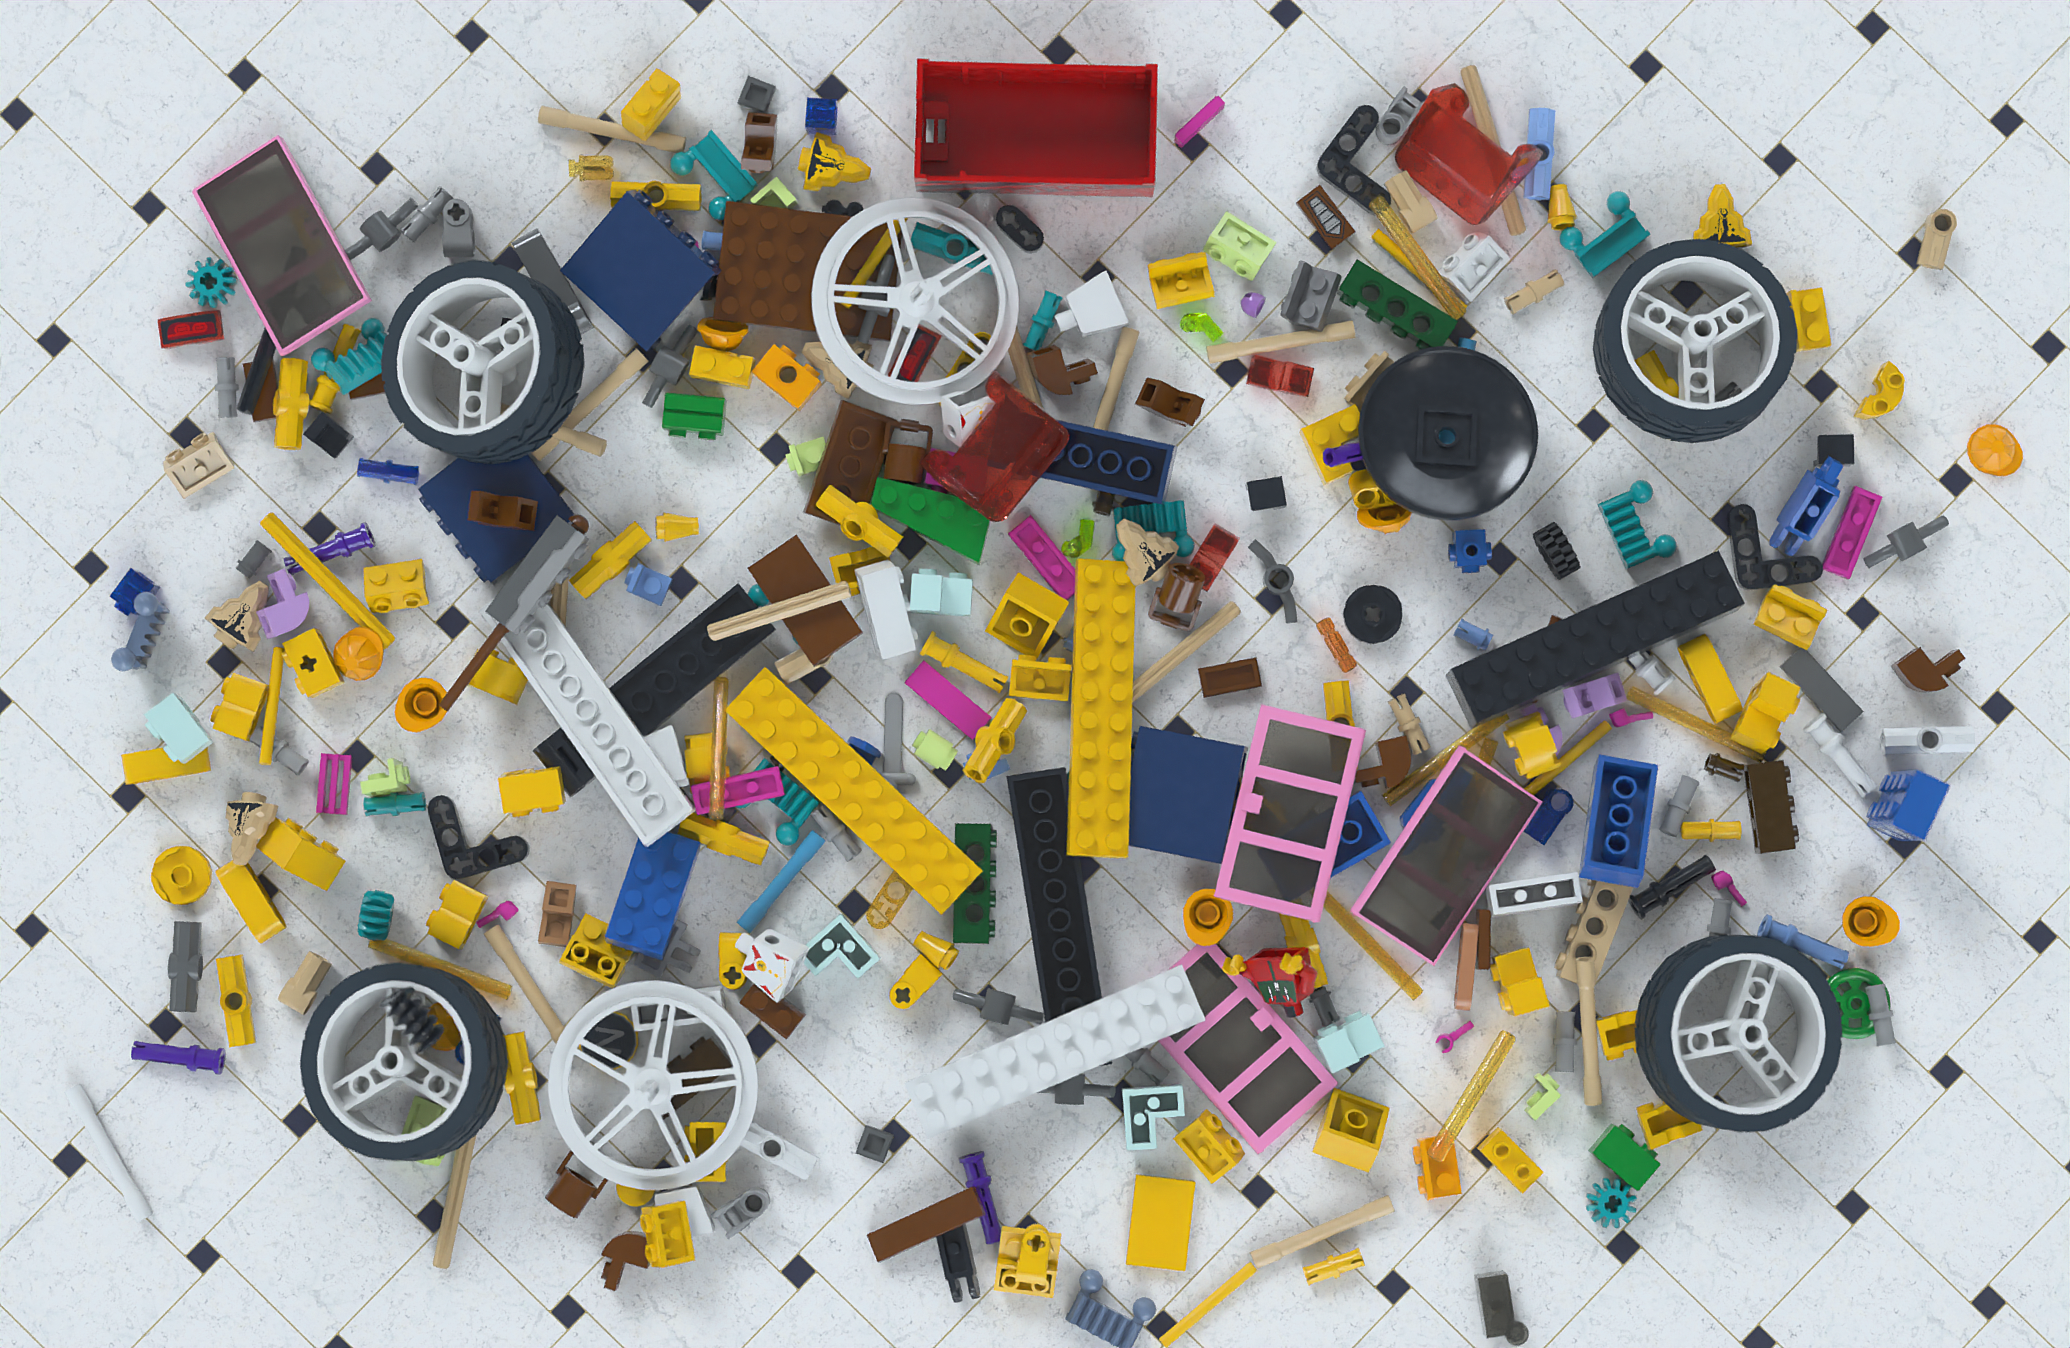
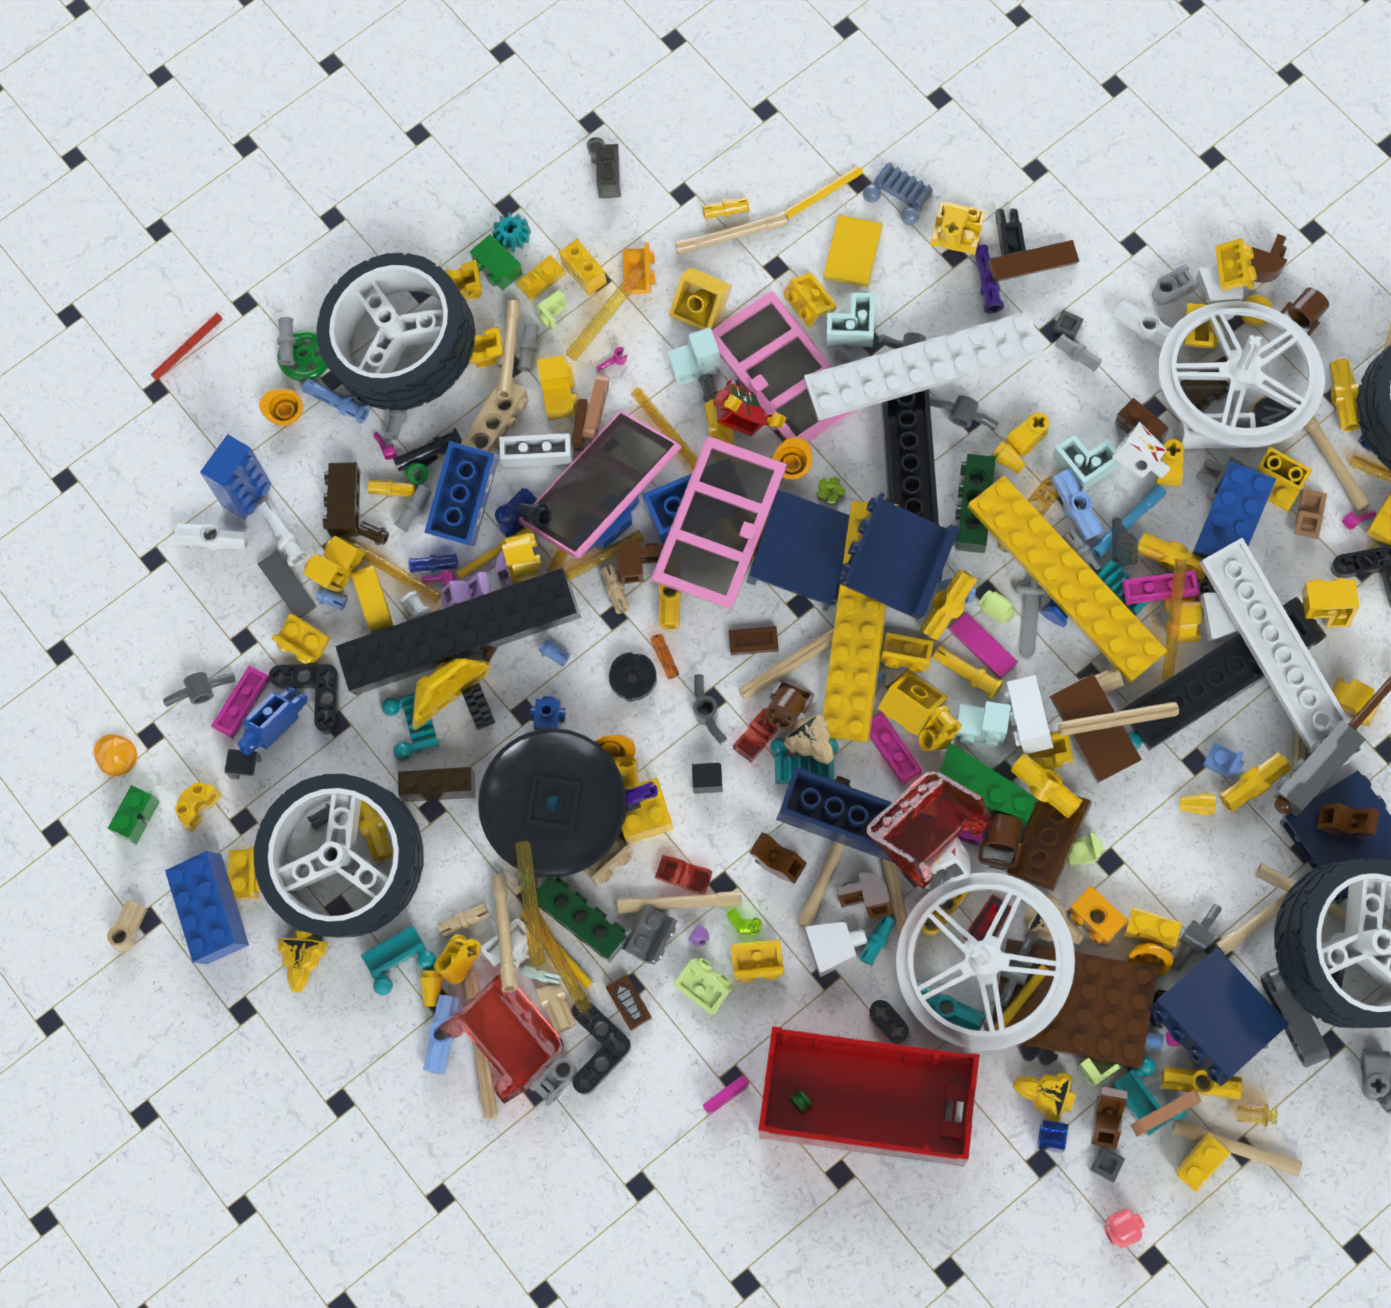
camera: 165 degrees left, 15 degrees down
(694, 415) = (1178, 893): green brick -> none
(695, 152) = (1165, 1113): none -> nougat beam
(734, 24) = (1124, 1228): none -> coral head
(785, 844) = (1123, 544): none -> clear smoke tile
(836, 876) = (1084, 517): none -> light blue piece
(858, 1104) = (1078, 352): none -> light grey pin
(993, 578) = (939, 730): none -> yellow piece
(1062, 783) = (897, 557): none -> dark blue panel
(1080, 543) = (867, 753): clear neon green arm -> none
(1112, 120) = (800, 1101): none -> green bush
(1155, 886) = (830, 490): none -> lime plant
(1433, 234) = (542, 975): none -> light aqua pin
(1457, 312) = (530, 903): none -> clear yellow axle
(1472, 229) = (507, 969): none -> tan piece
(1521, 803) = (536, 514): none -> black cone
(1534, 240) = (456, 959): none -> yellow piece
(1563, 1144) = (540, 278): none -> yellow plate
(1592, 450) = (436, 784): none -> dark brown brick
(1603, 568) = (445, 686): none -> yellow wedge
(1641, 735) = (433, 563): none -> clear blue pin
(1675, 846) = (421, 468): none -> green bush
(1754, 673) = (331, 598): none -> medium blue pin
(1843, 268) = (206, 907): none -> blue brick
(1922, 675) = (202, 584): reddish brown brick -> none
(1953, 385) = (125, 821): none -> green piece
(2011, 1000) = (186, 347): none -> clear red bar

